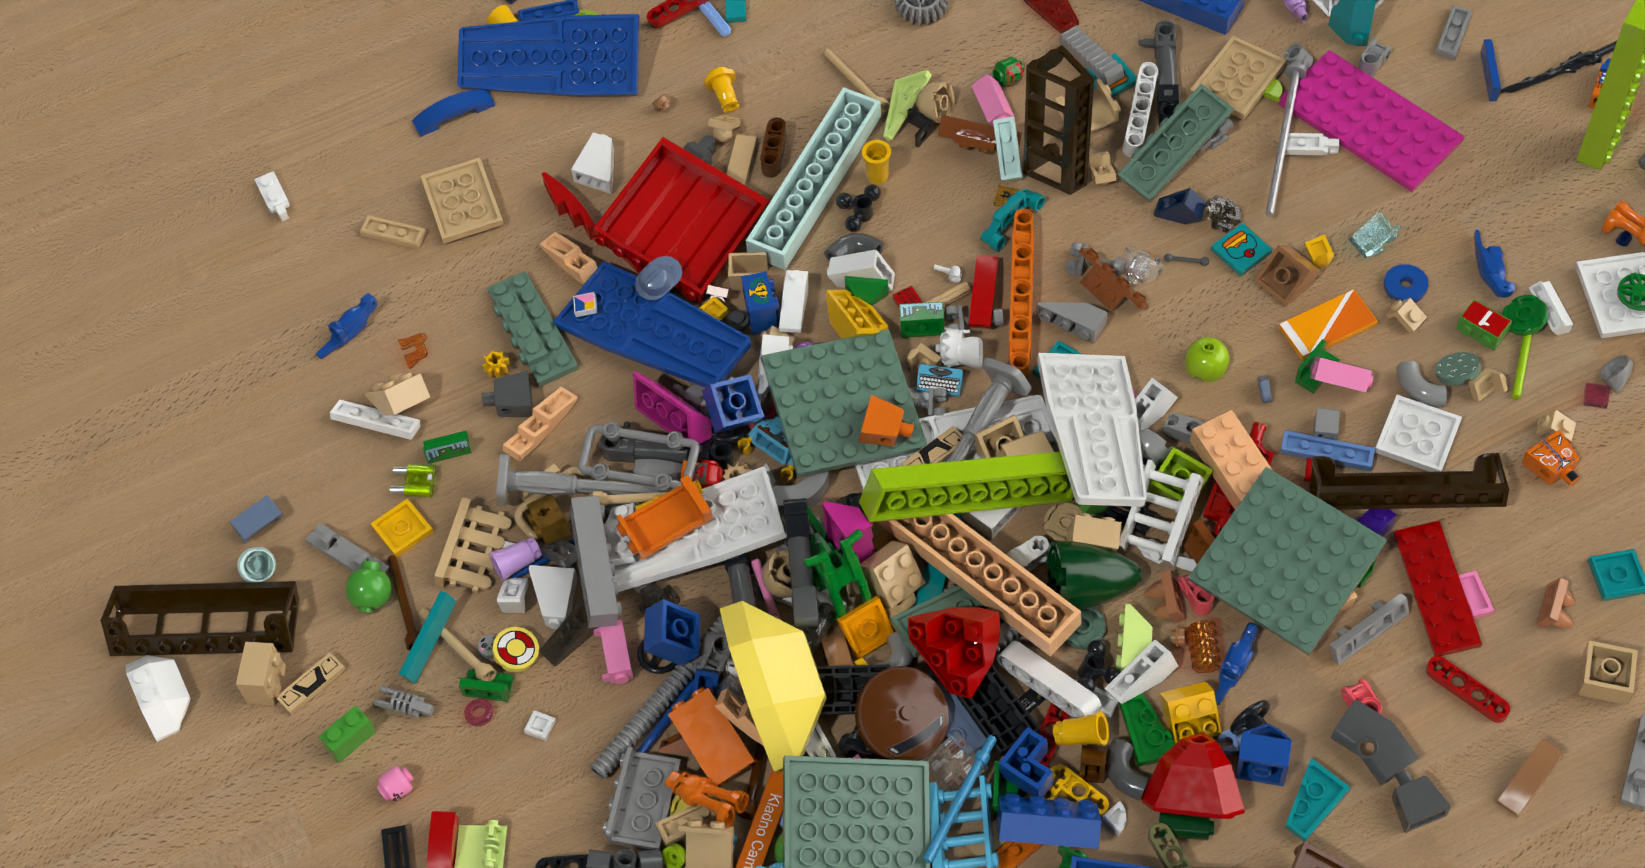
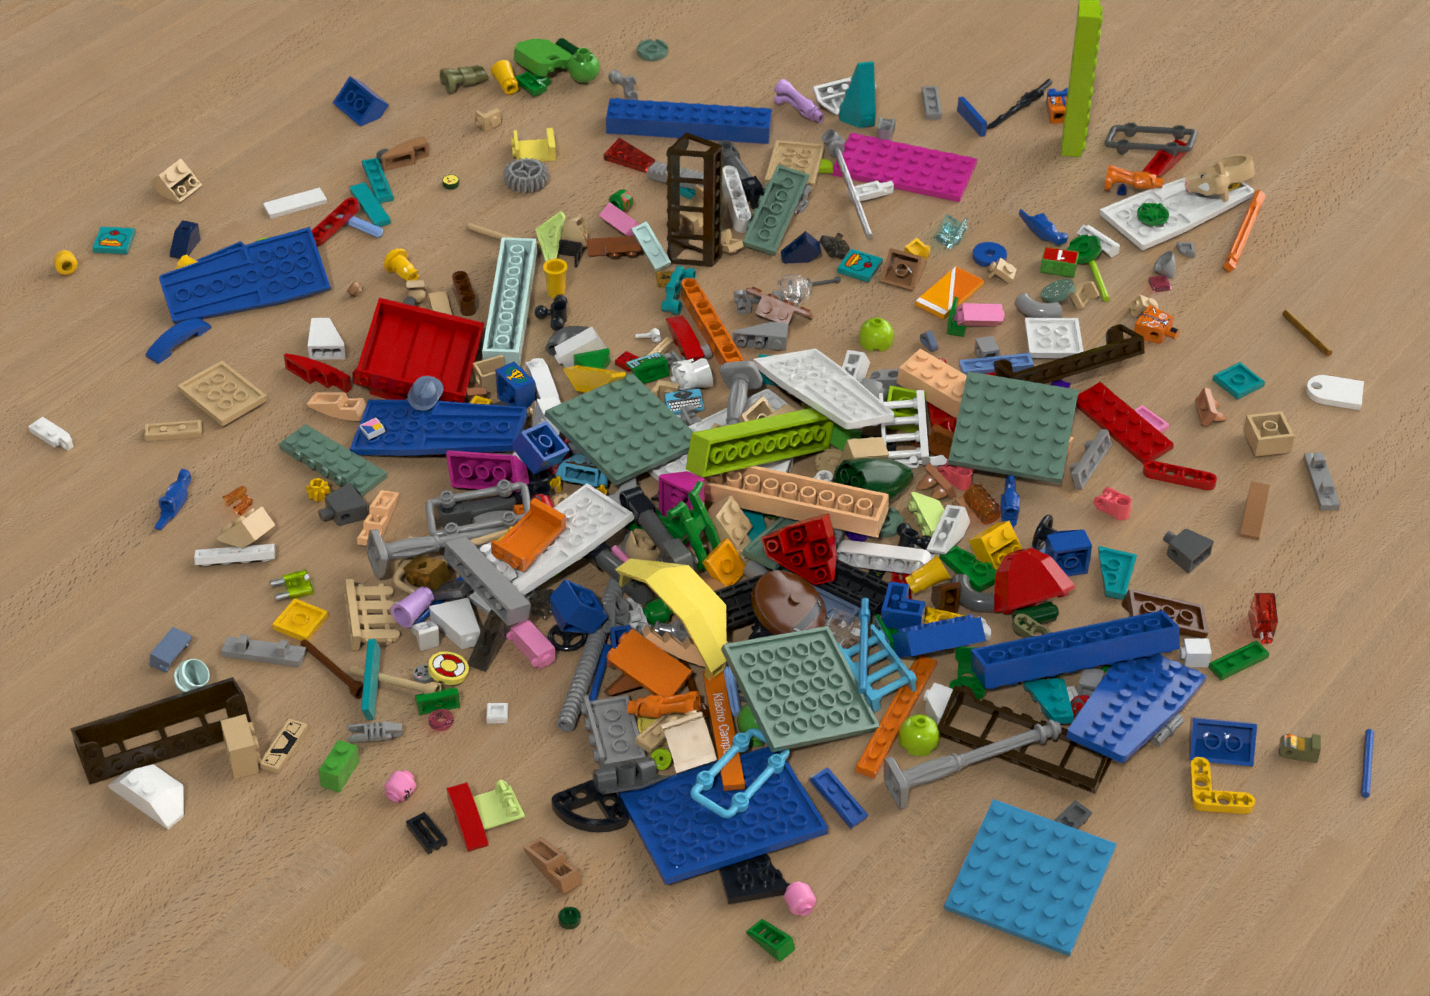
camera: 30 degrees left, 15 degrees down
(368, 587) = (299, 663): bright green brick -> none
(447, 447) = (308, 555): green panel -> none
(883, 423) = (665, 428): orange torso -> none
(1364, 726) = (1150, 521): dark grey panel -> none

